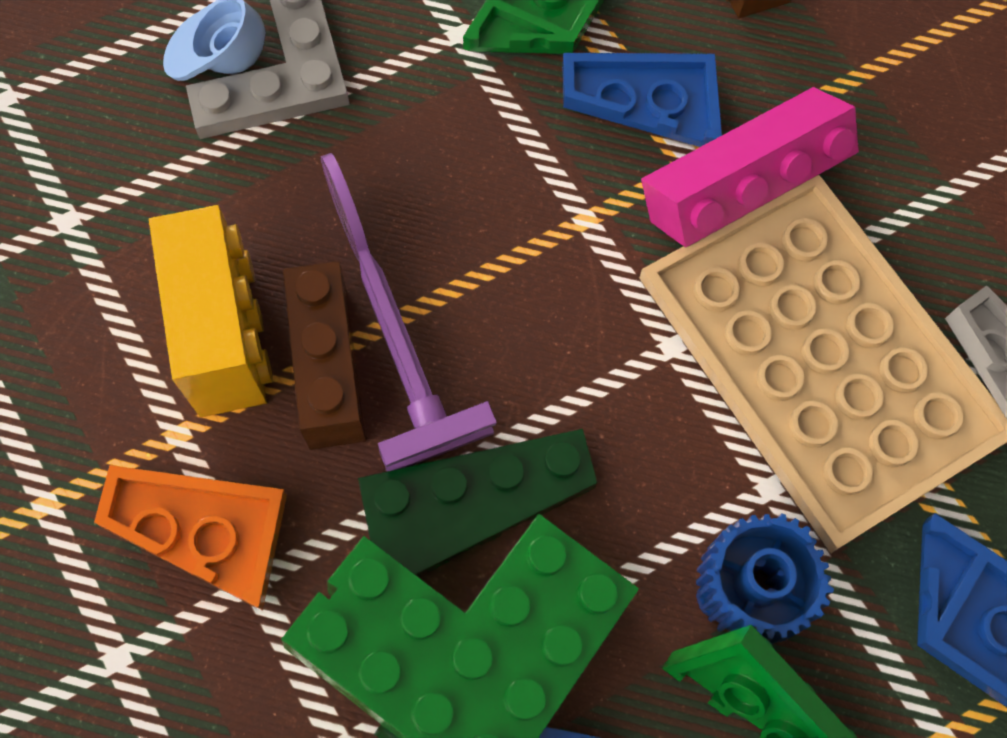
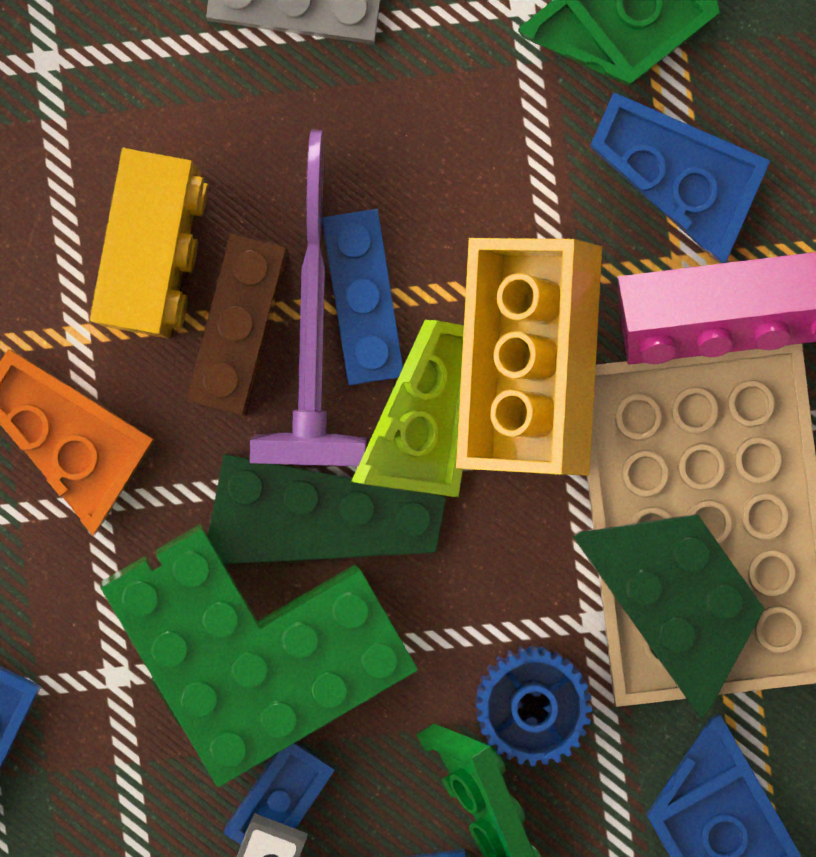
camera: 25 degrees right, 20 degrees up
(430, 297) = (362, 297): none -> blue plate
(531, 362) = (419, 425): none -> lime wing
(600, 268) = (529, 355): none -> yellow brick
(840, 421) = (679, 597): none -> dark green wing

